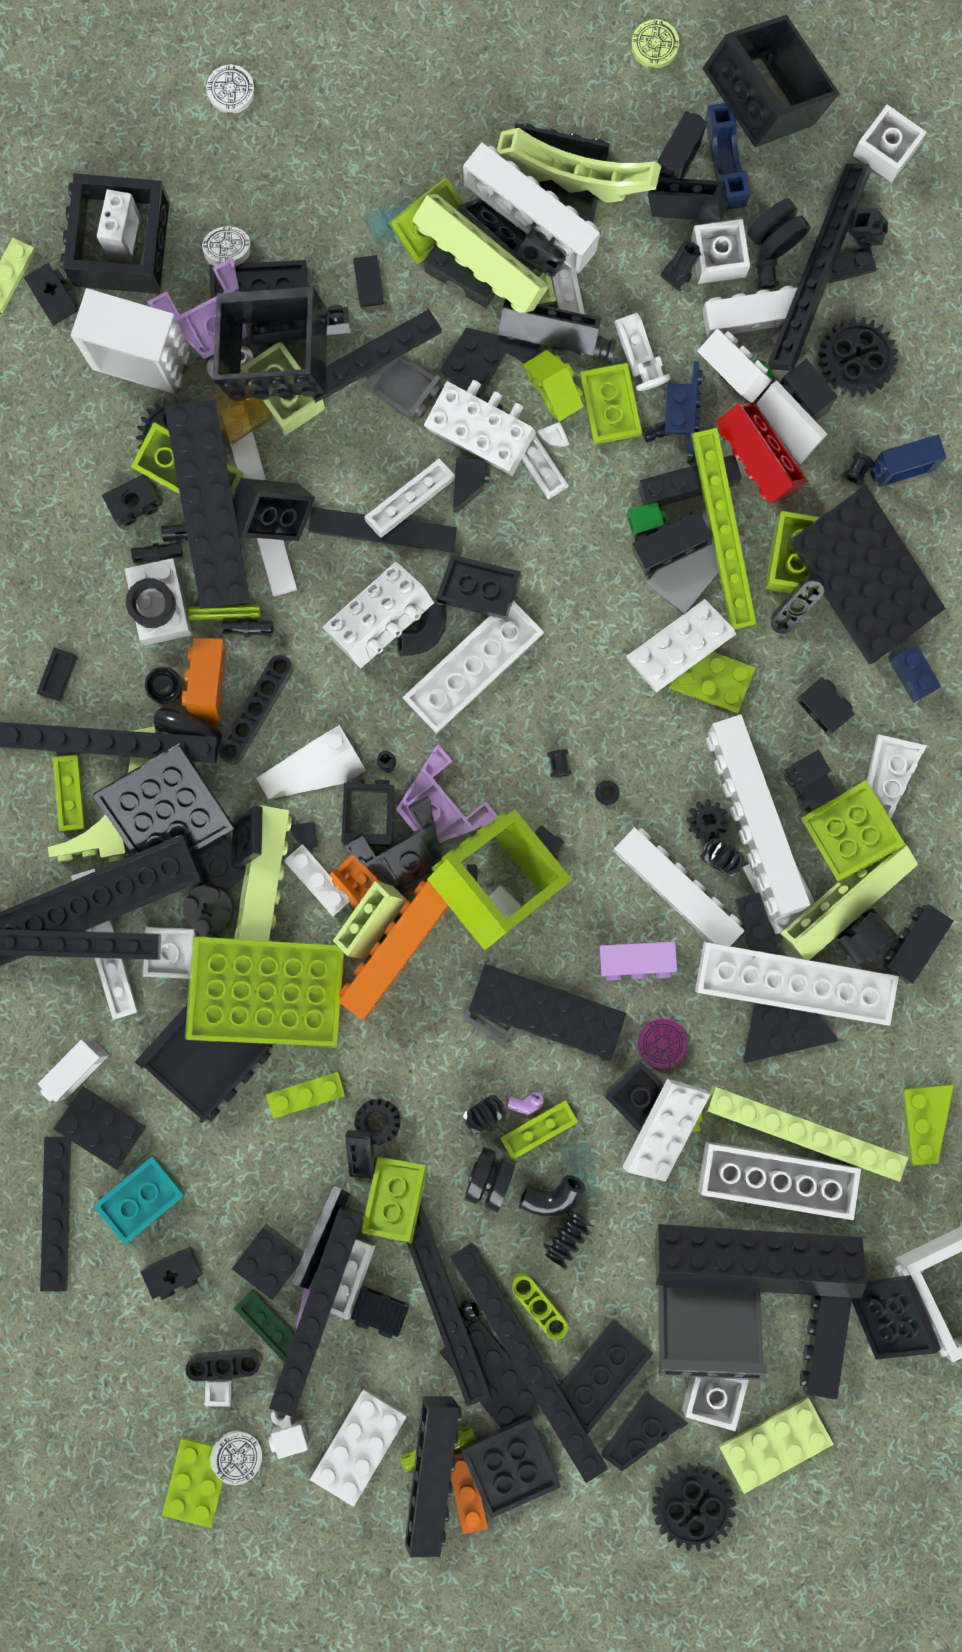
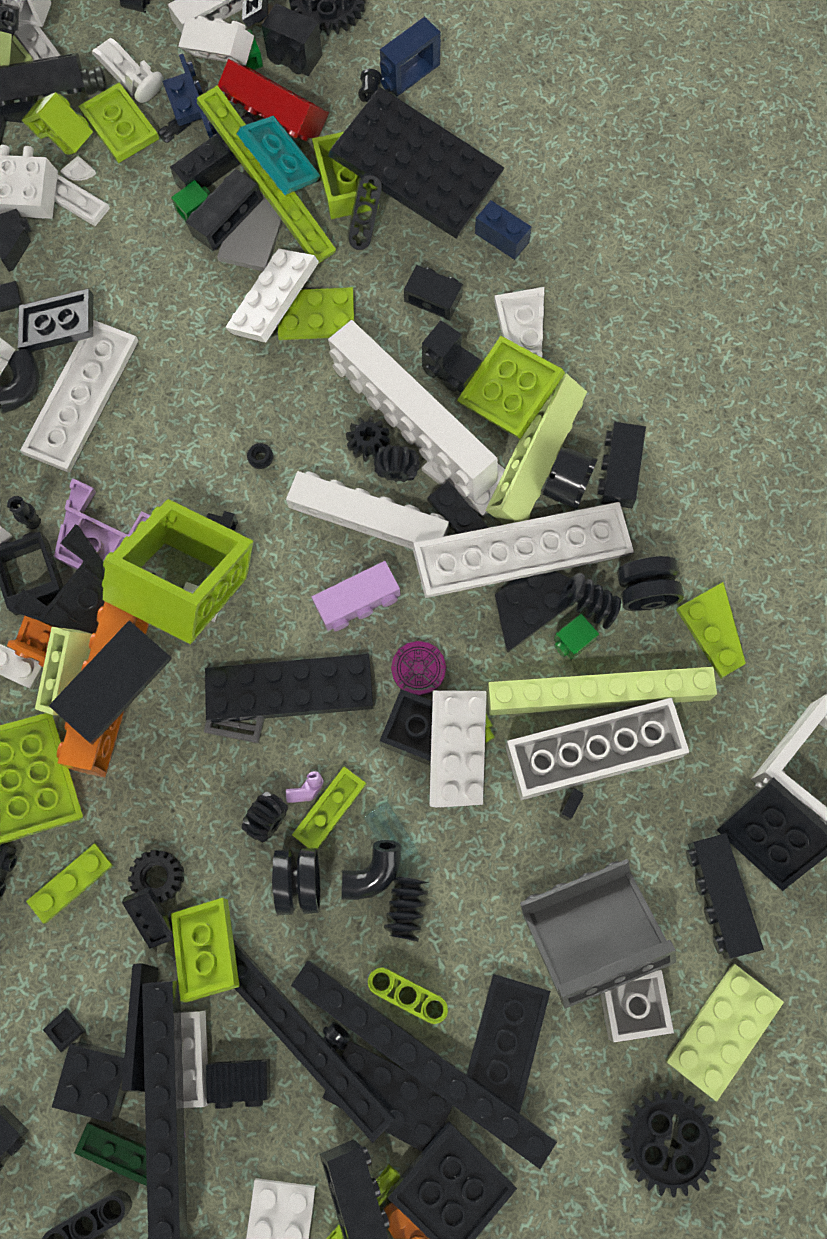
camera: 20 degrees left, 10 degrees down
(258, 1209) = (64, 1030): none -> black tile
(407, 954) = (110, 682): none -> black tile
(559, 763) = (200, 447): black bush -> none
(641, 1430) = (577, 1081): black wing -> none
(737, 1215) = (571, 804): none -> black tile
(744, 518) = (278, 154): none -> teal plate
(760, 1261) = (614, 839): black brick -> none
(790, 422) = (289, 66): white tile -> none
(805, 1077) = (575, 637): none -> green brick
(833, 1053) = (592, 598): none -> black piece
(889, 1063) = (650, 583): none -> black wheel

